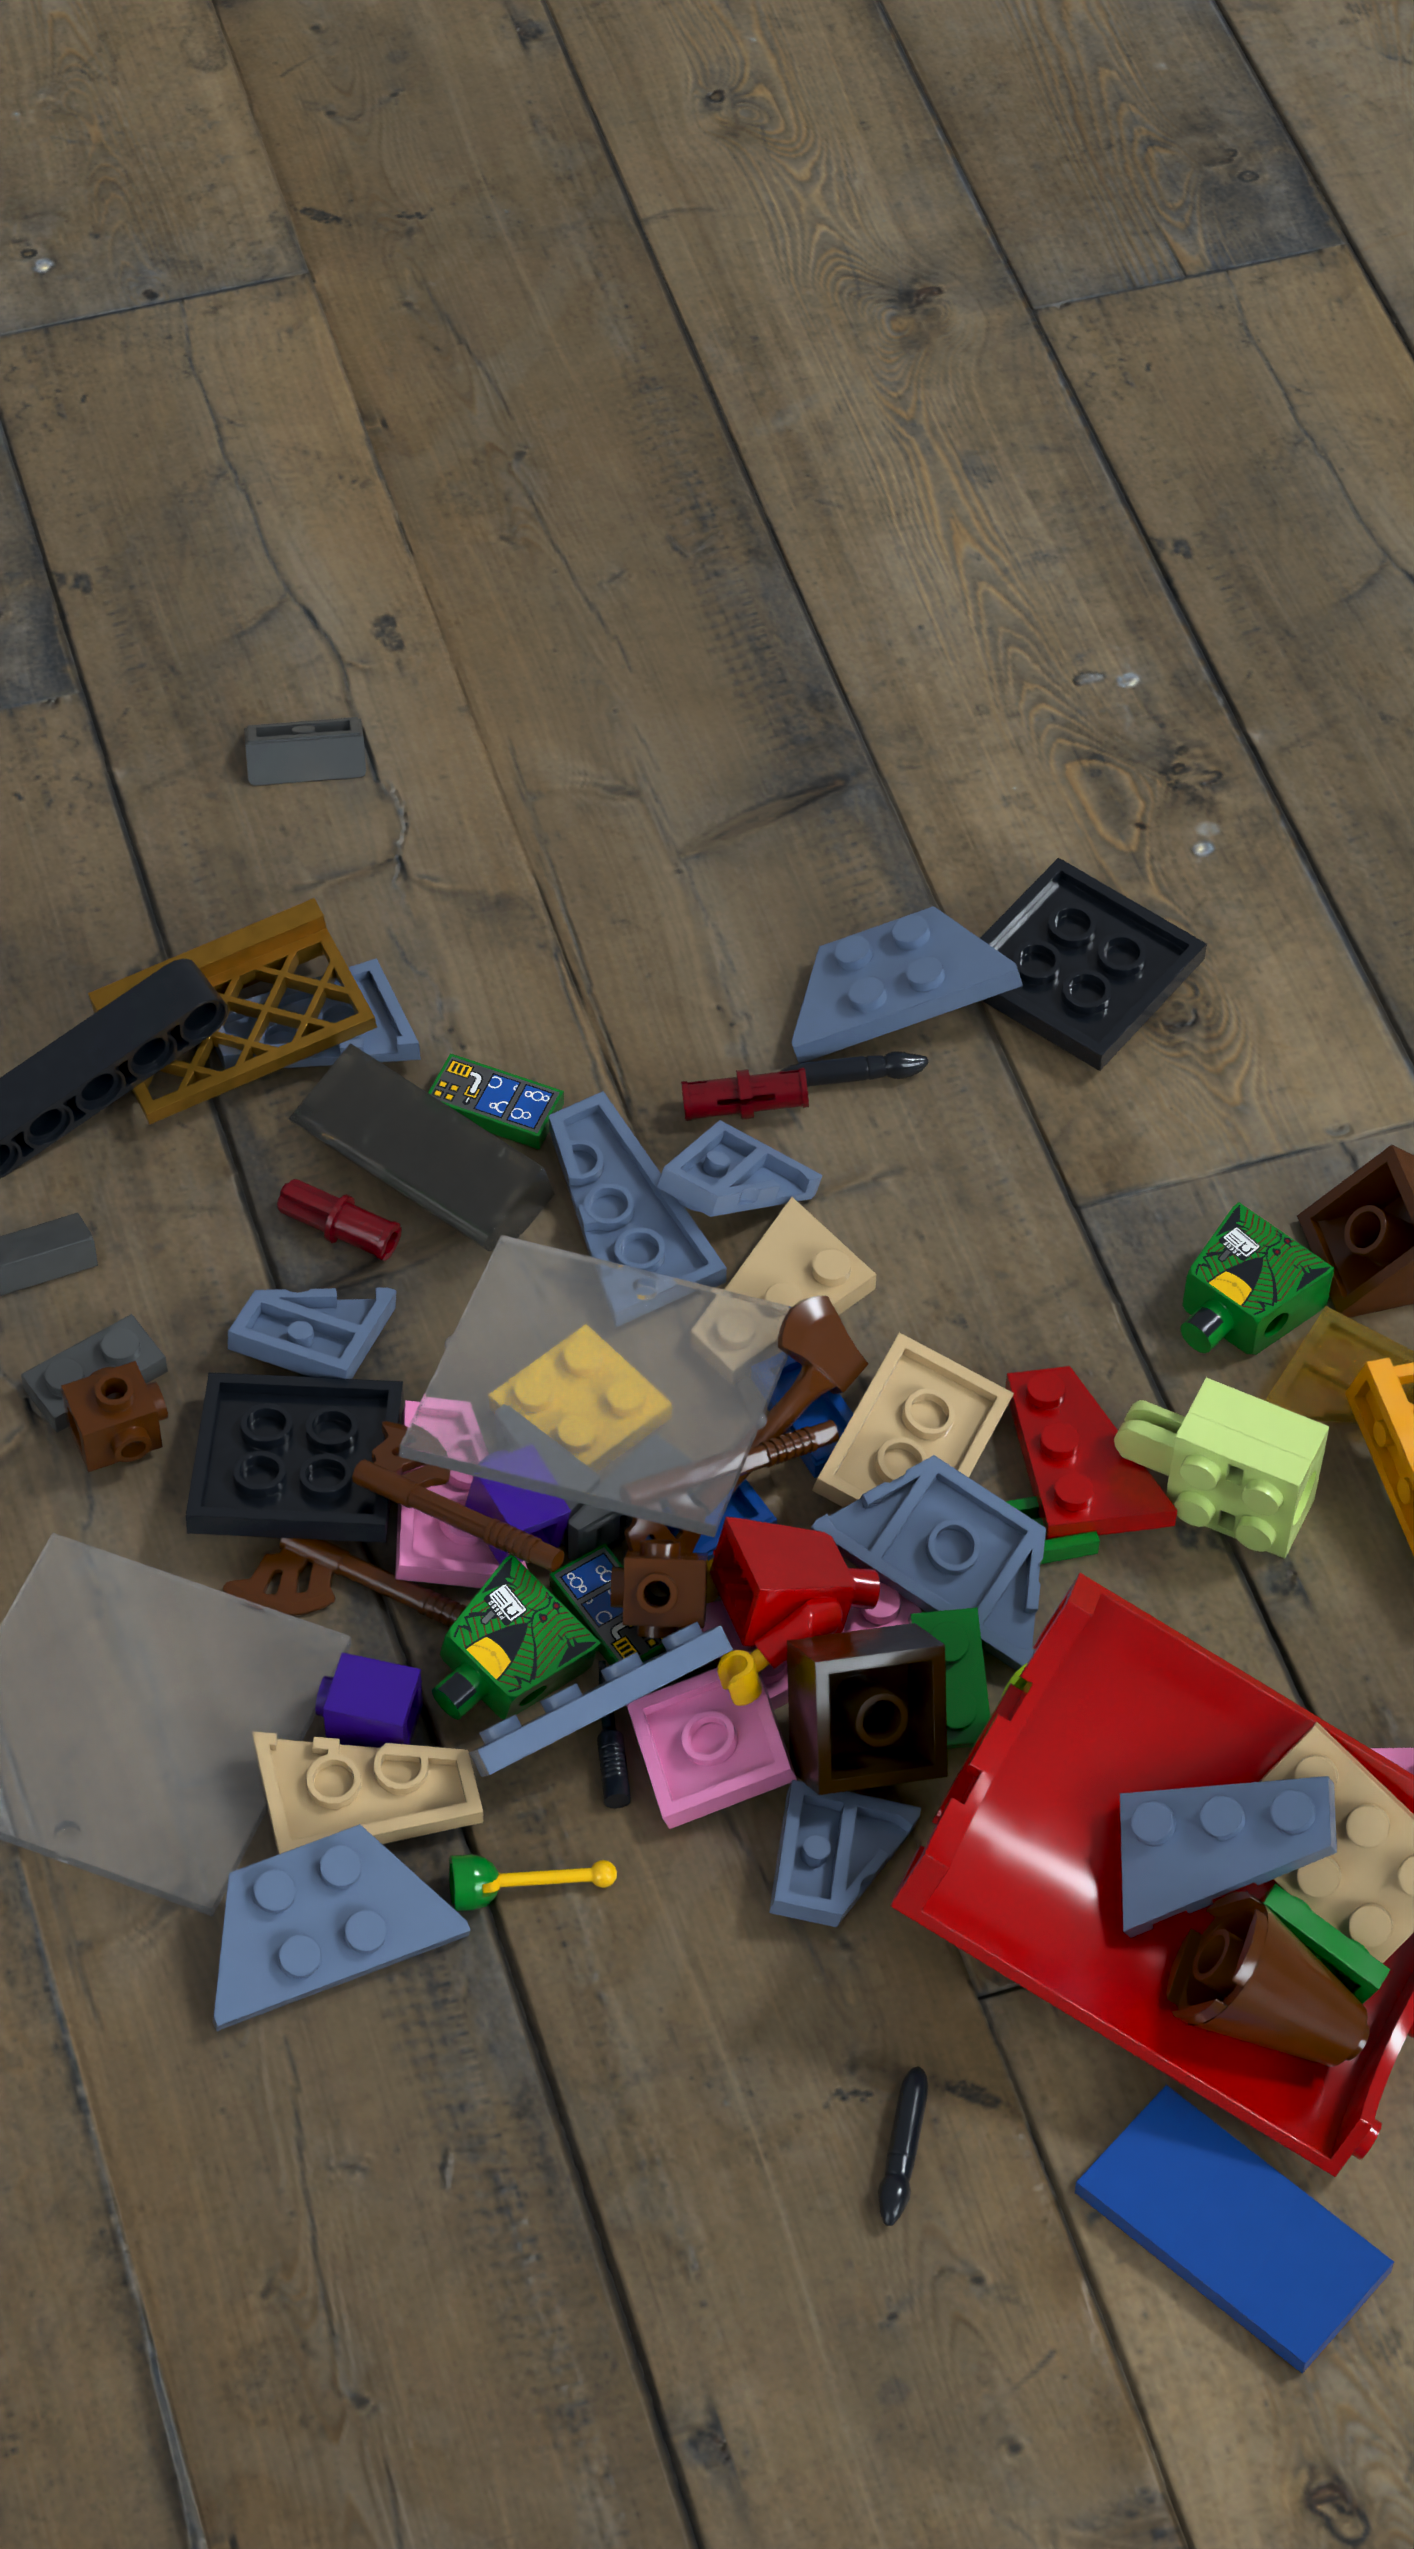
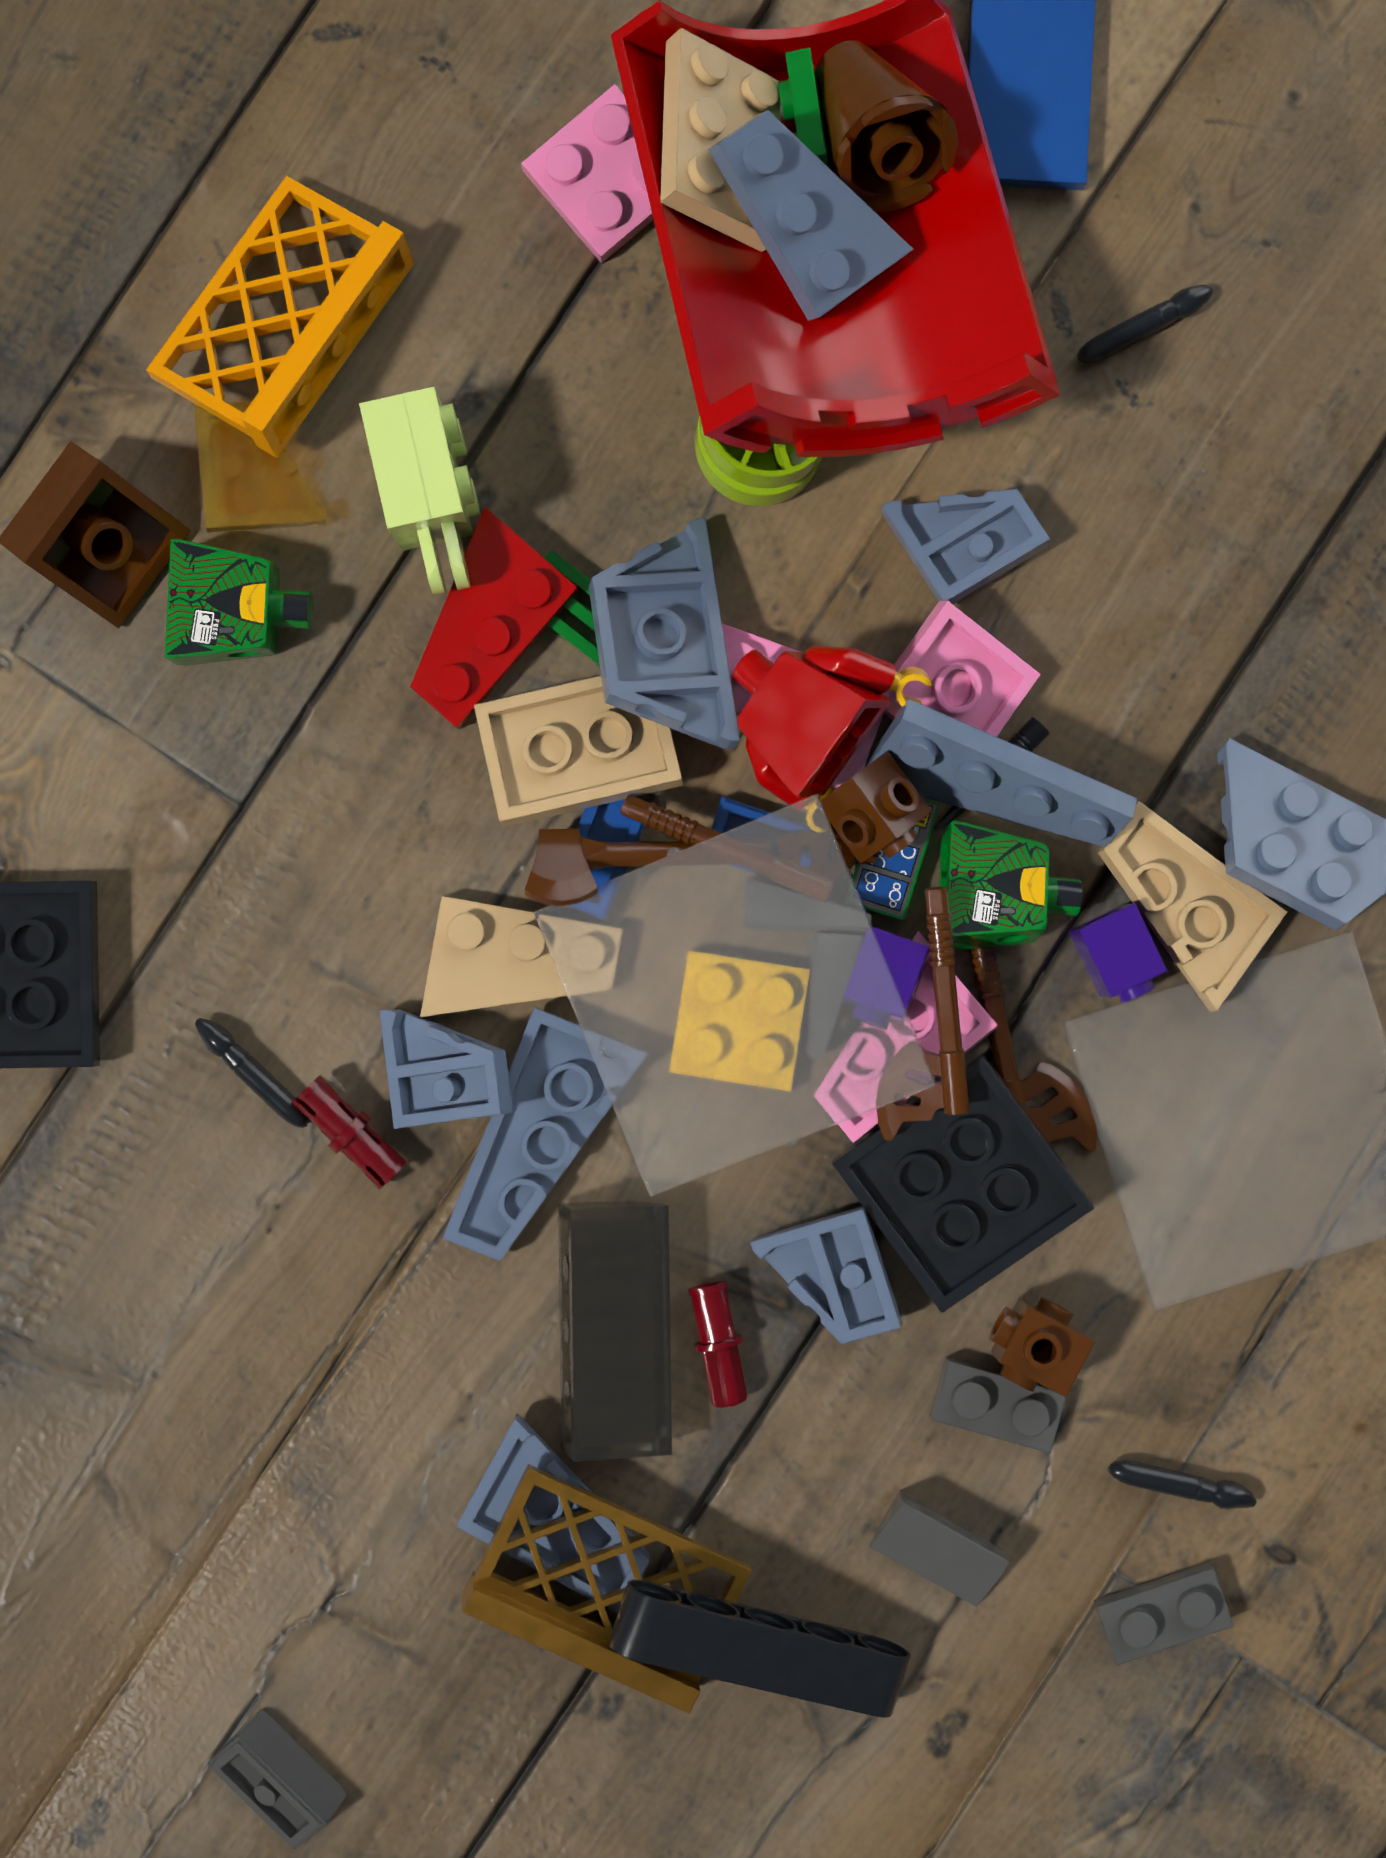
camera: 130 degrees left, 35 degrees up
(476, 1880) = (1187, 764): hinge -> none
(498, 1100) = (509, 1322): tile -> none
(867, 1708) = (862, 577): dark brown brick -> none
(895, 980) = (142, 1101): sand blue wing -> none
(965, 1672) = (763, 561): green plate -> none

